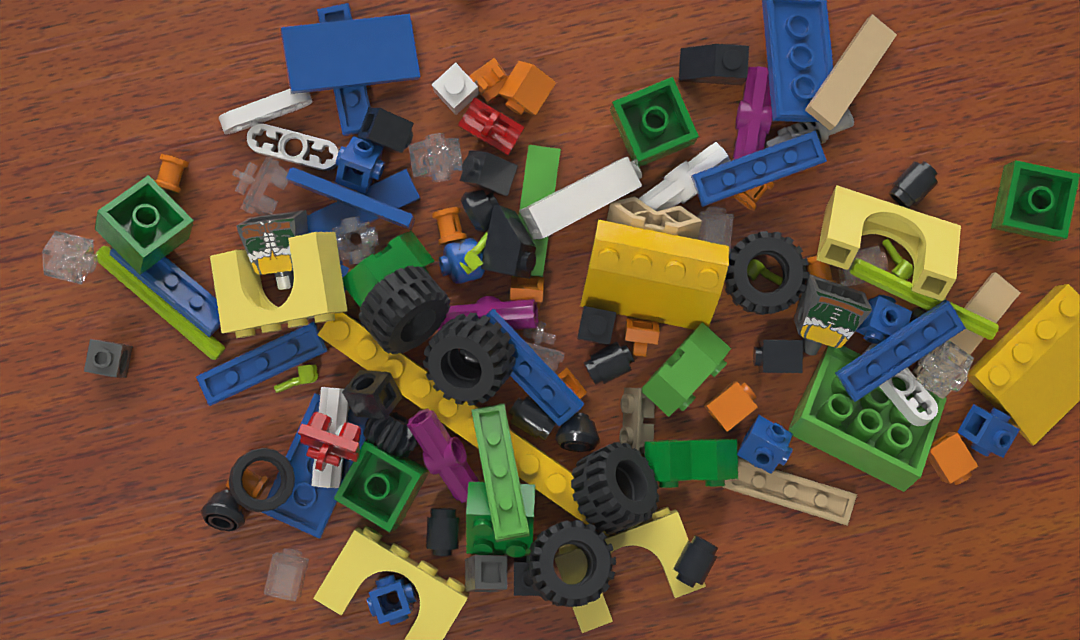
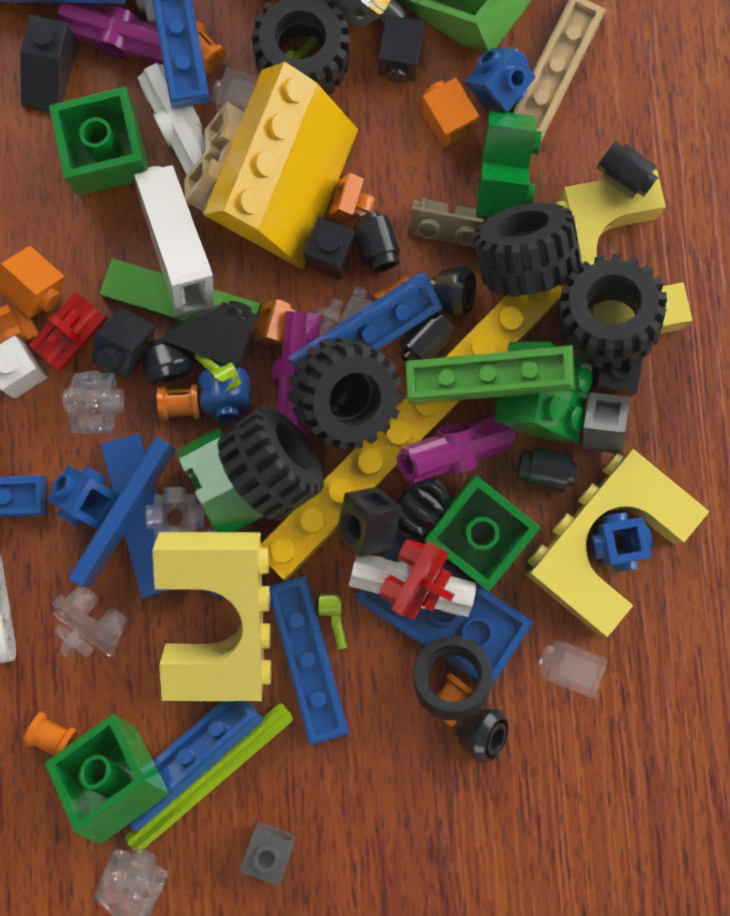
camera: 85 degrees left, 5 degrees down
(268, 149) = (44, 609): white beam -> none
(268, 243) = (162, 618): torso -> none
(386, 130) = (46, 457): black brick -> none
(686, 370) = (401, 152): bright green brick -> none

